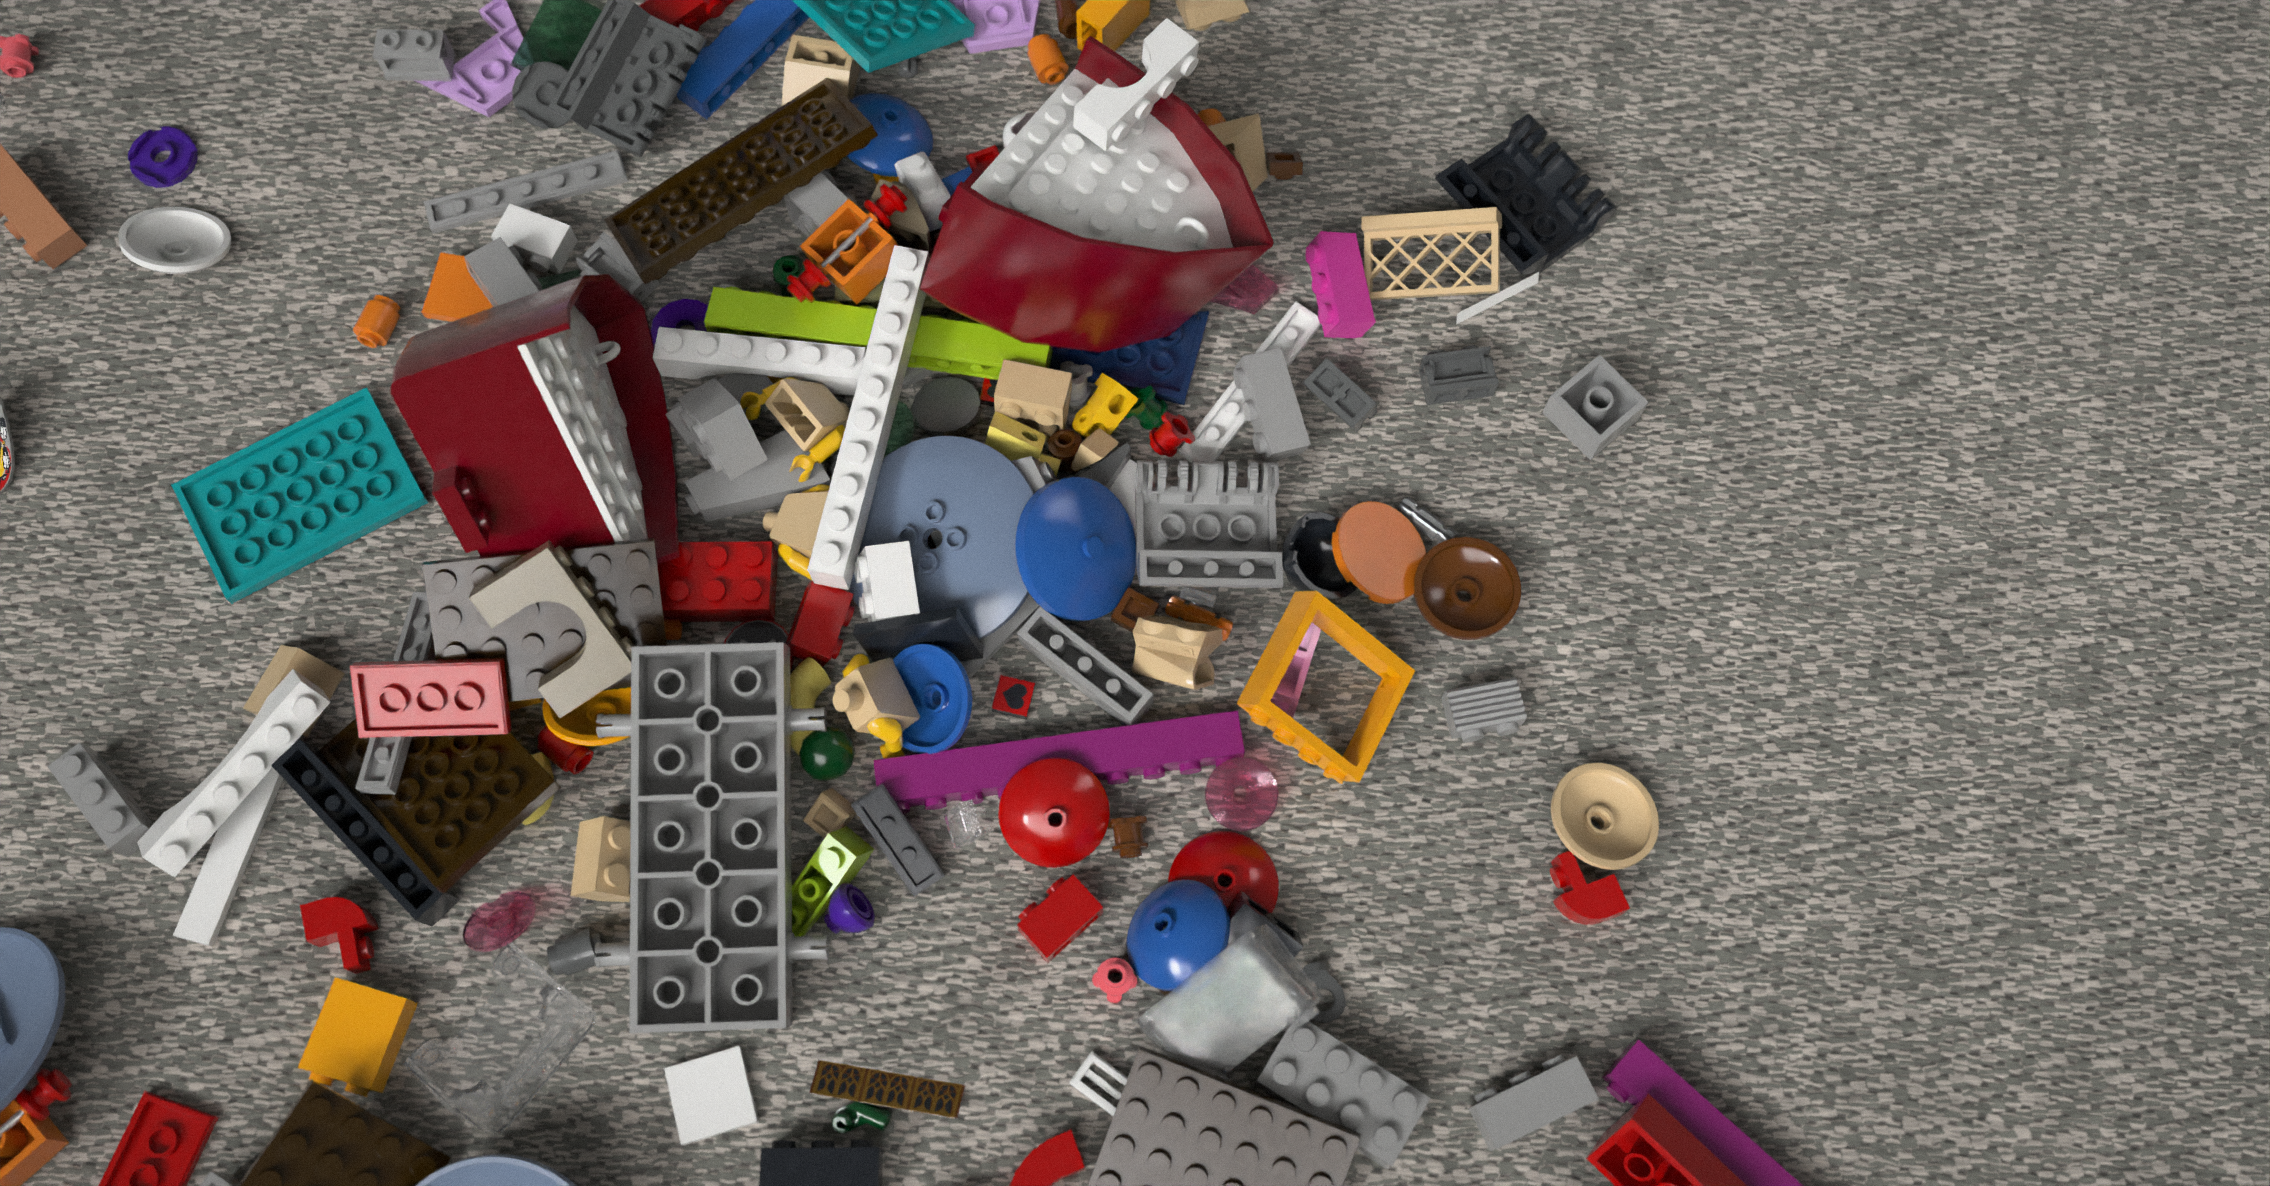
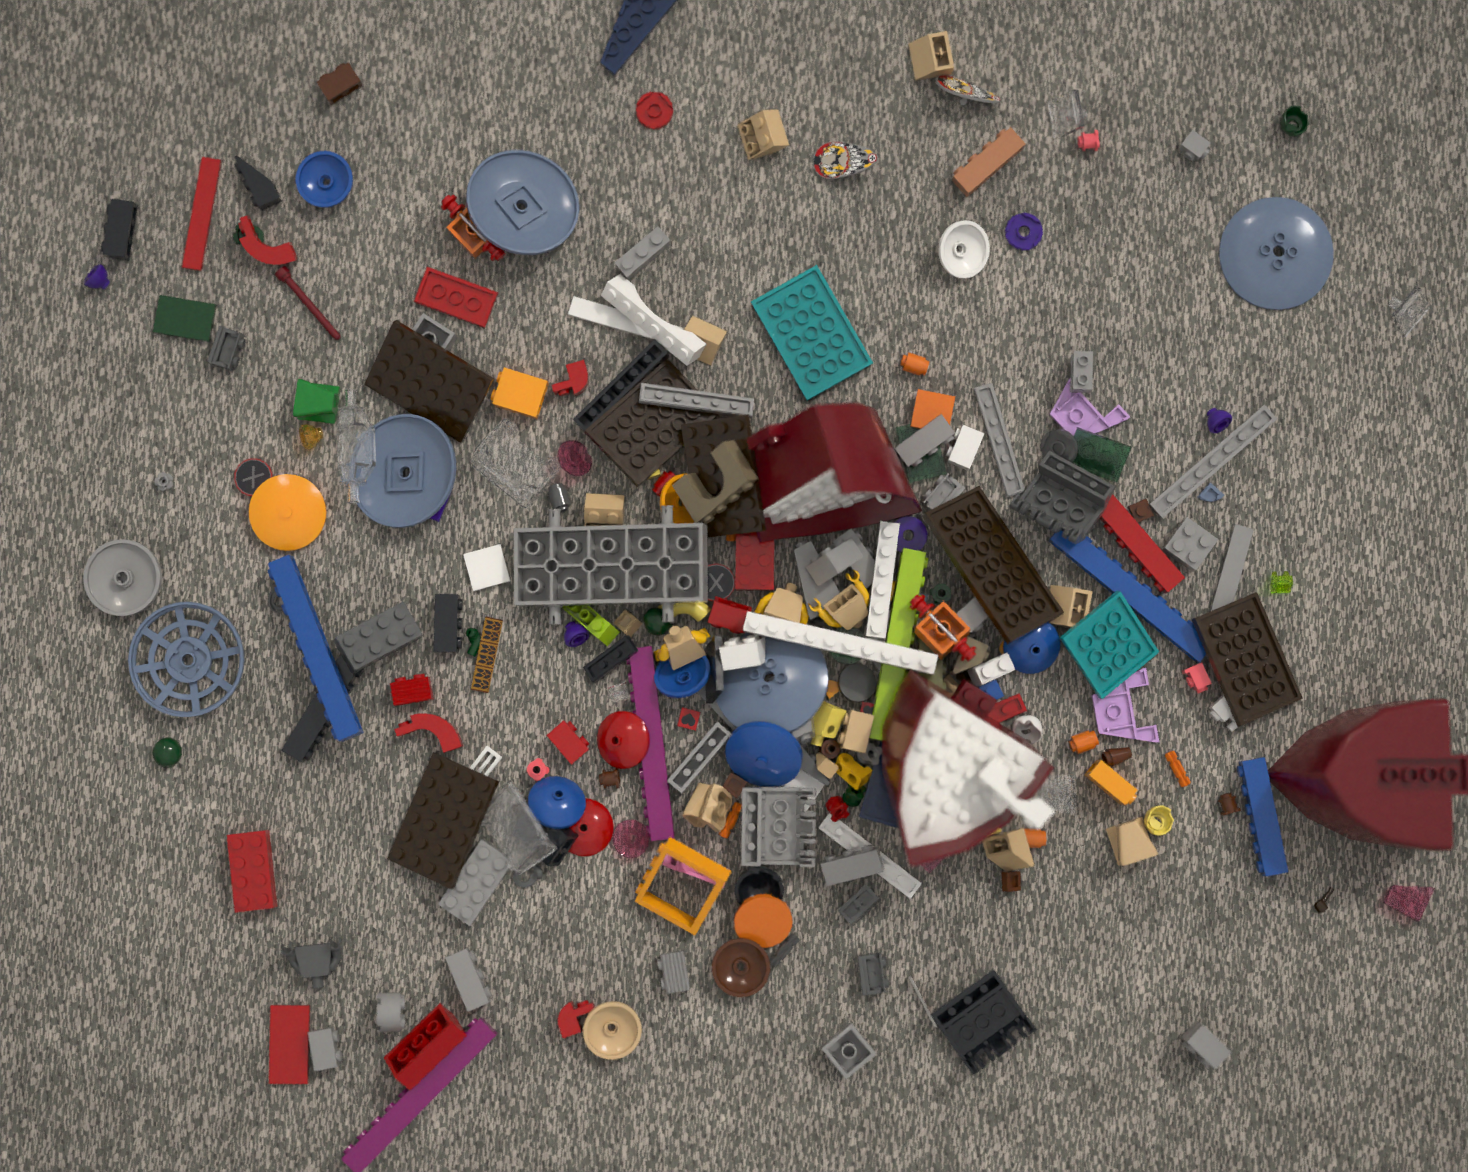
camera: 100 degrees right, 15 degrees up
(430, 698) = (684, 419): tile -> none
(1340, 285) = (929, 908): dark pink brick -> none
(1436, 225) = (960, 966): tan fence -> none

